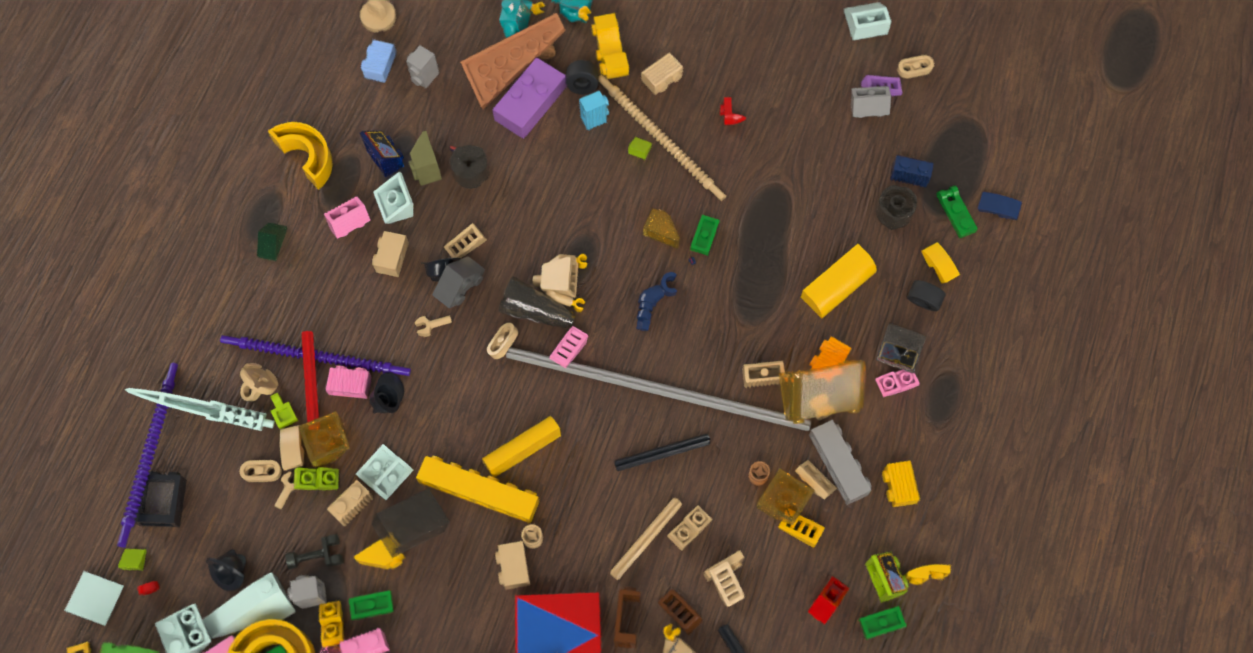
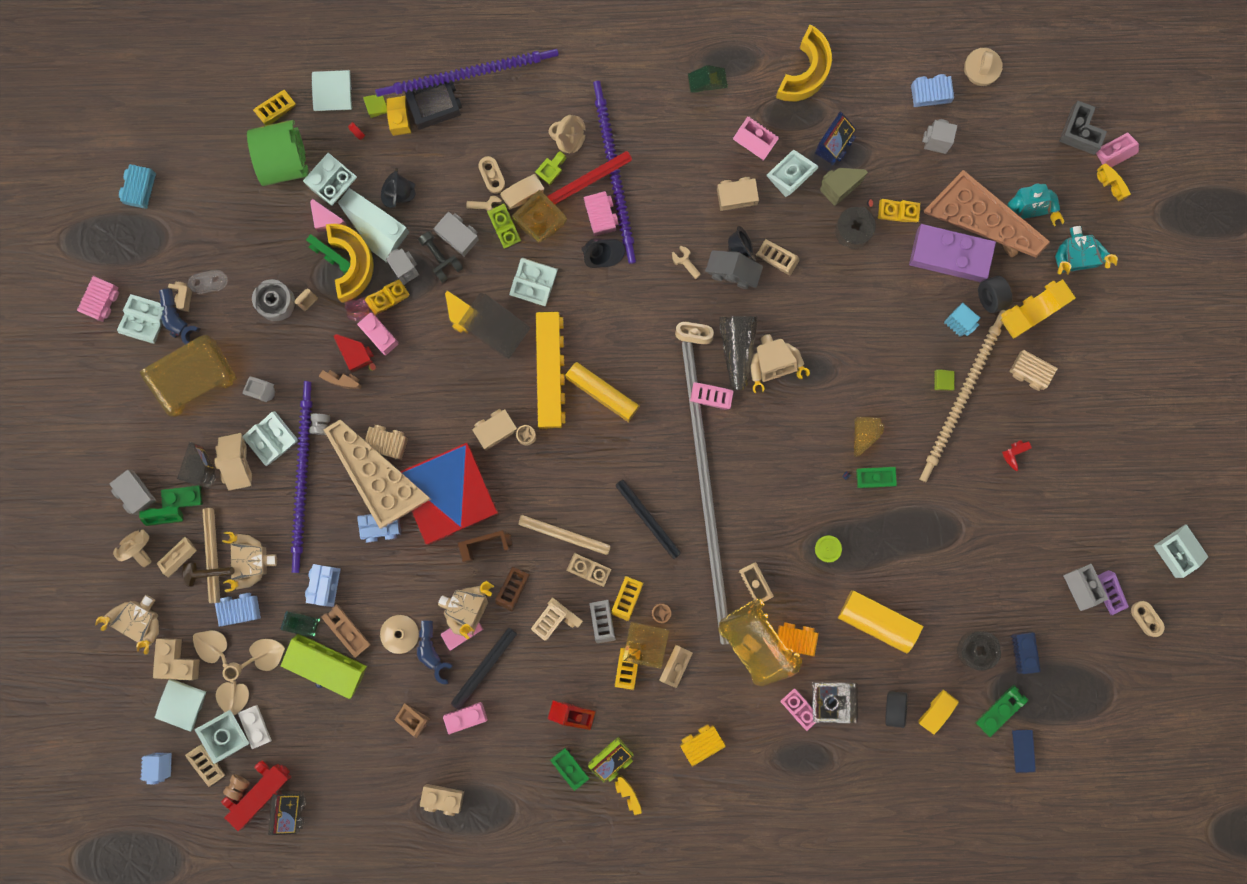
camera: 70 degrees right, 15 degrees up
(155, 540) = (398, 115): none -> yellow slope
(212, 410) = (526, 109): light aqua piece -> none
(301, 526) = (456, 233): none -> light grey brick
(350, 503) = (493, 265): tan brick -> none
(371, 605) = (415, 323): green plate -> none
(472, 127) = (899, 211): none -> yellow slope
(650, 297) = (790, 450): dark blue piece -> none
(747, 510) = (619, 613): none -> yellow slope
(753, 543) = (603, 638): none -> light grey slope
(755, 298) = (828, 549): none -> lime piece
(840, 462) = (700, 682): light grey brick -> none

